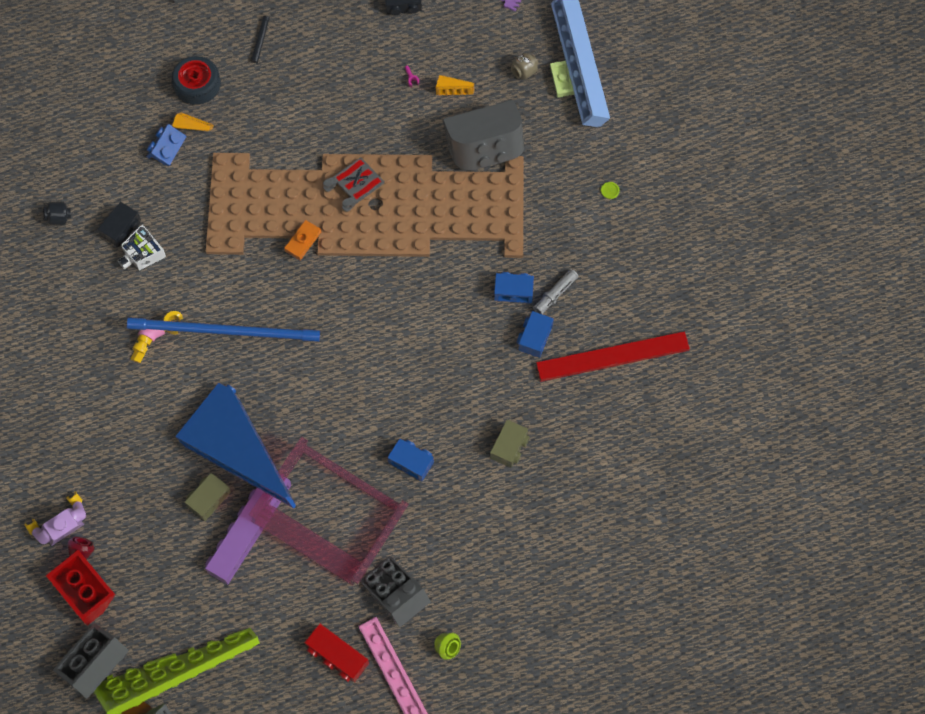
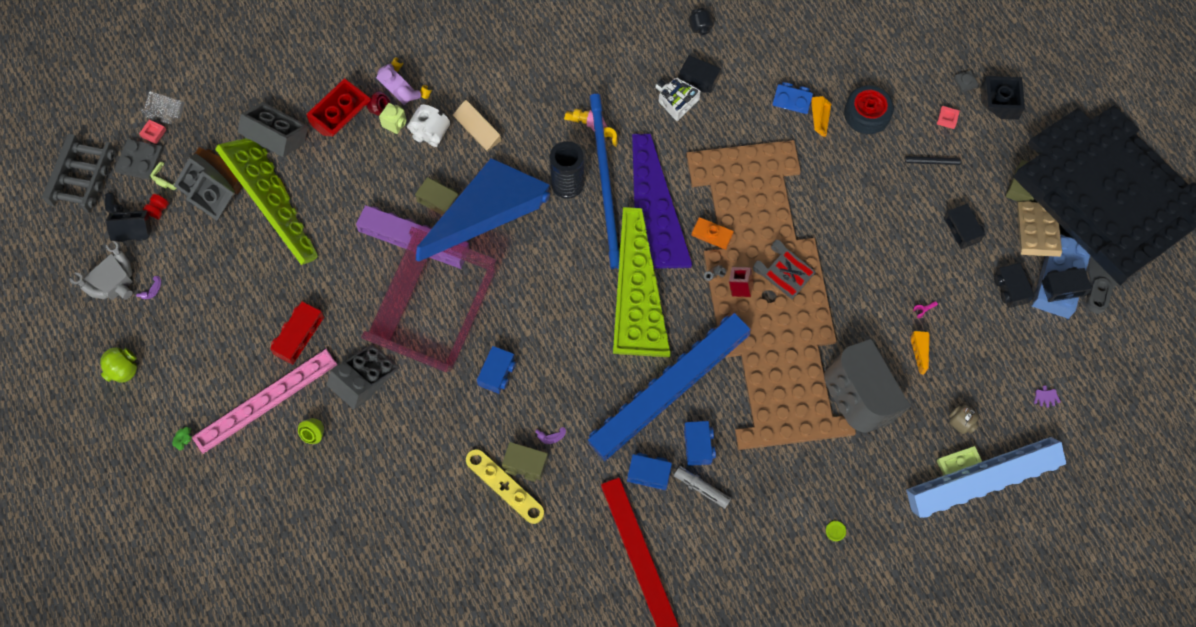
camera: 80 degrees right, 0 degrees up
(102, 532) = (393, 118): none -> yellowish green brick
(122, 495) = (428, 125): none -> white brick
(128, 449) = (477, 126): none -> tan slope
(211, 358) = (567, 169): none -> black piece
(218, 15) = (948, 117): none -> coral plate
(279, 292) = (653, 197): none -> dark purple wing
(336, 26) = (964, 226): none -> black brick
(344, 242) = (716, 271): none -> dark grey arm
(363, 219) = (741, 282): none -> dark red brick
(368, 320) = (638, 308): none -> lime wing
(456, 303) = (668, 387): none -> blue brick
(487, 419) = (550, 439): none -> medium lavender piece
(518, 476) = (515, 496): none -> light yellow piece

